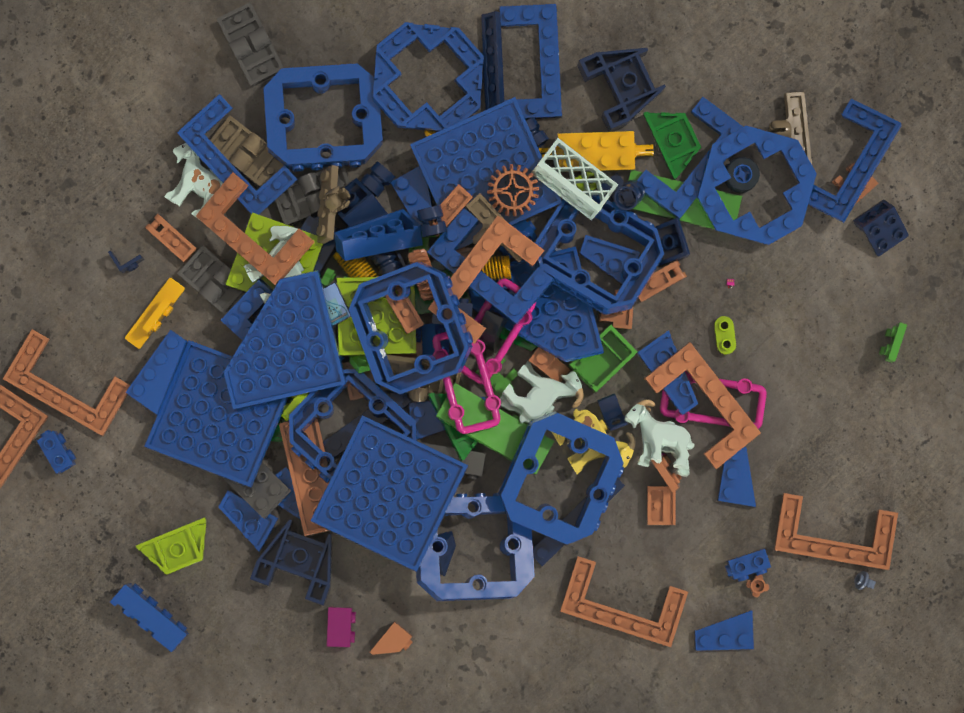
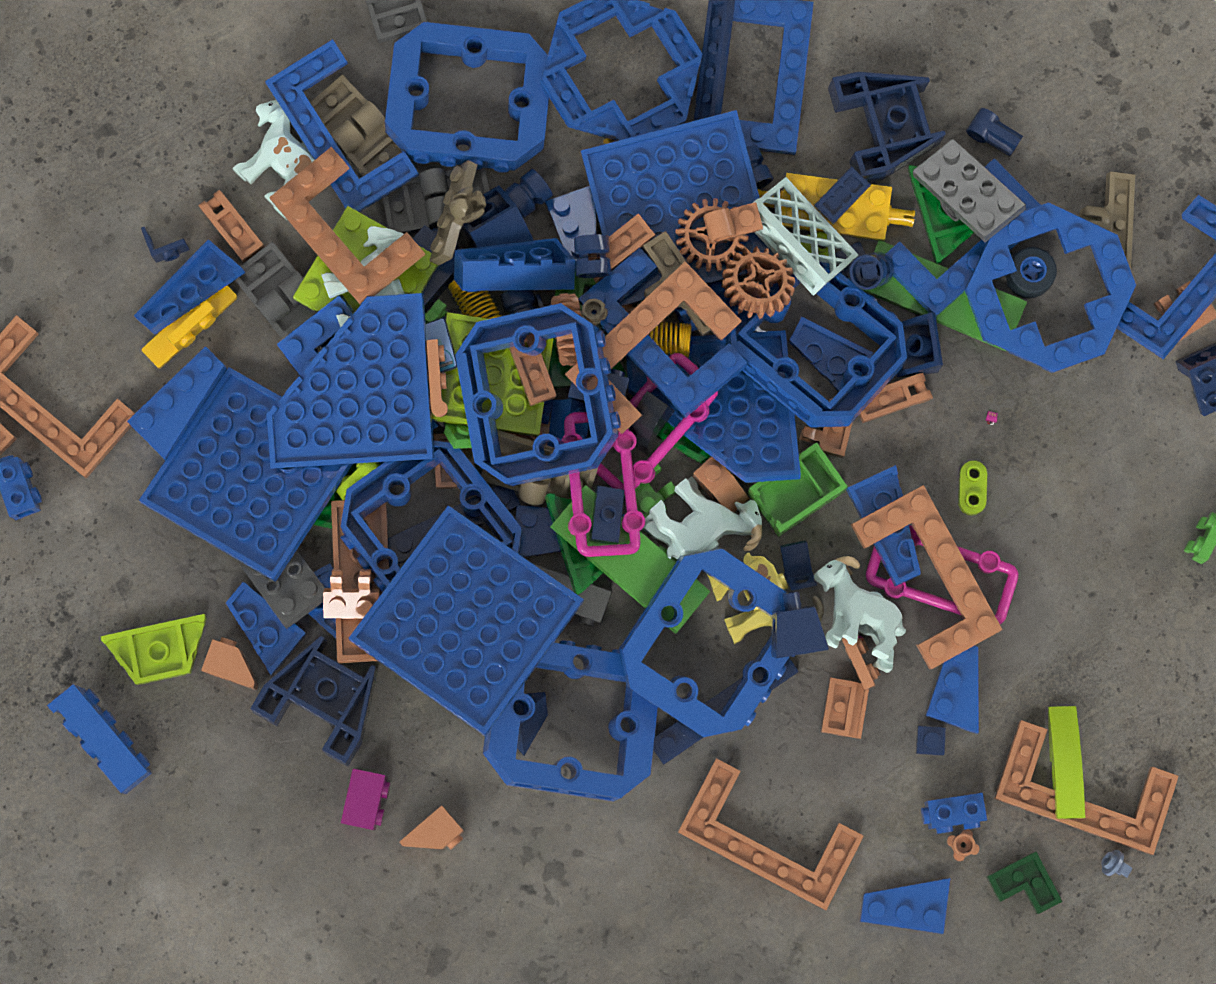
camera: 10 degrees right, 5 degrees down
(150, 287) = (192, 284): none -> blue wing
(228, 549) = (229, 663): none -> nougat slope
(306, 493) = (349, 602): none -> plate
(339, 328) = (436, 379): none -> nougat plate
(439, 265) = (594, 304): none -> dark tan plate
(473, 401) = (607, 515): none -> dark blue plate
(526, 181) = (733, 222): none -> nougat plate
(558, 233) = (760, 268): none -> nougat gear
(600, 144) = (842, 195): none -> dark blue plate
(618, 460) = (796, 629): none -> dark blue torso
(688, 125) = (968, 191): none -> plate
(695, 76) = (988, 128): none -> dark blue piece
(723, 517) = (930, 740): none -> dark blue plate
(804, 599) = (1026, 875): none -> dark green plate
(819, 516) = (1066, 762): none -> lime slope

